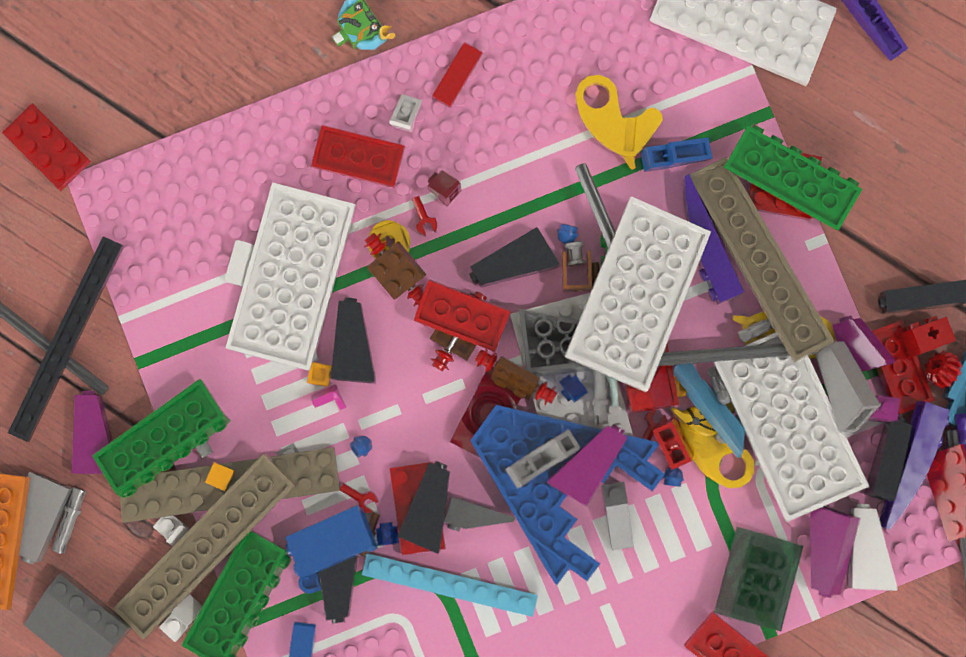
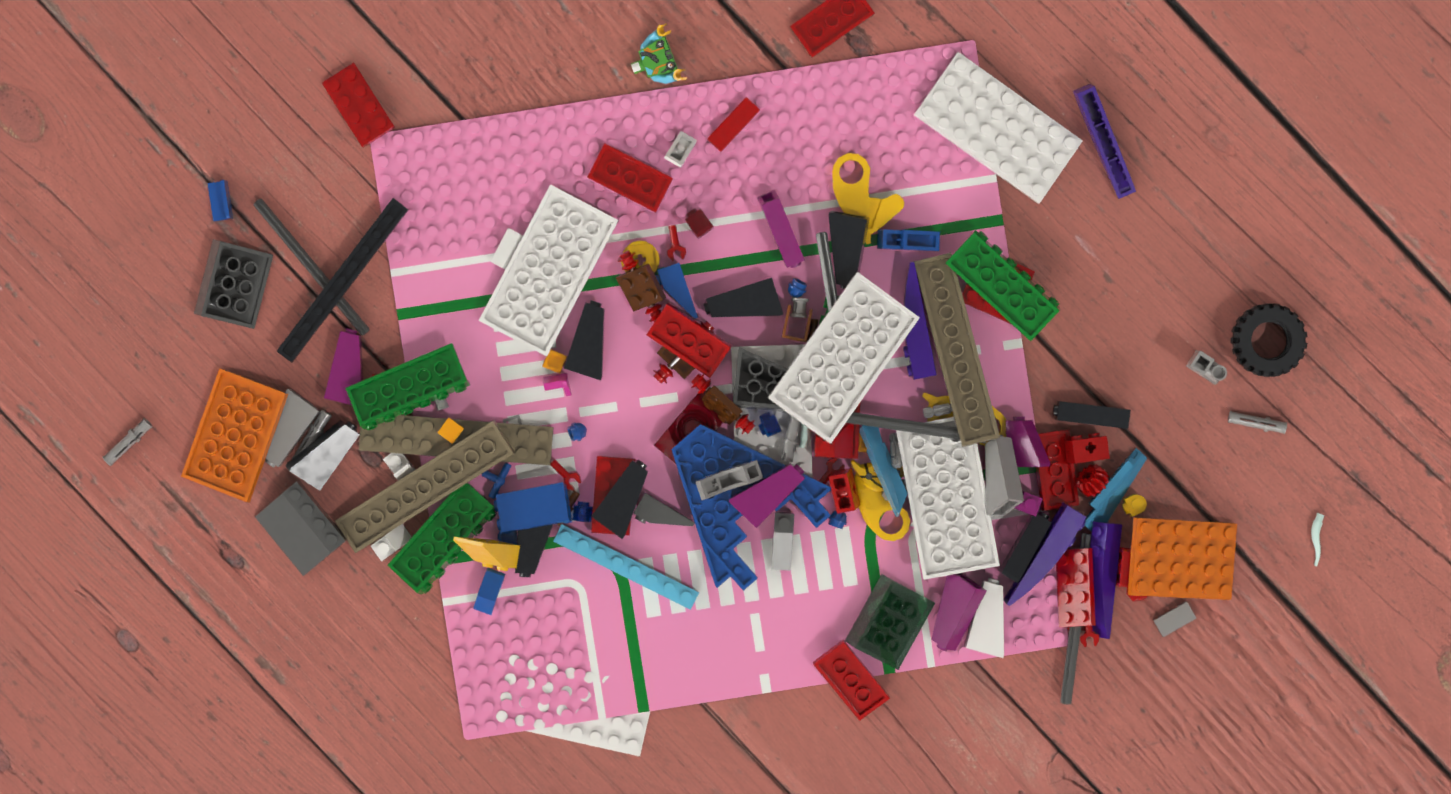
camera: 10 degrees right, 5 degrees up
(83, 540) = (323, 456): none -> slope
(286, 520) = (498, 479): none -> blue piece
(292, 603) = (490, 552): none -> yellow slope
(434, 261) = (675, 284): none -> blue slope
(535, 173) = (781, 229): none -> magenta slope
(612, 172) = (848, 244): none -> black slope

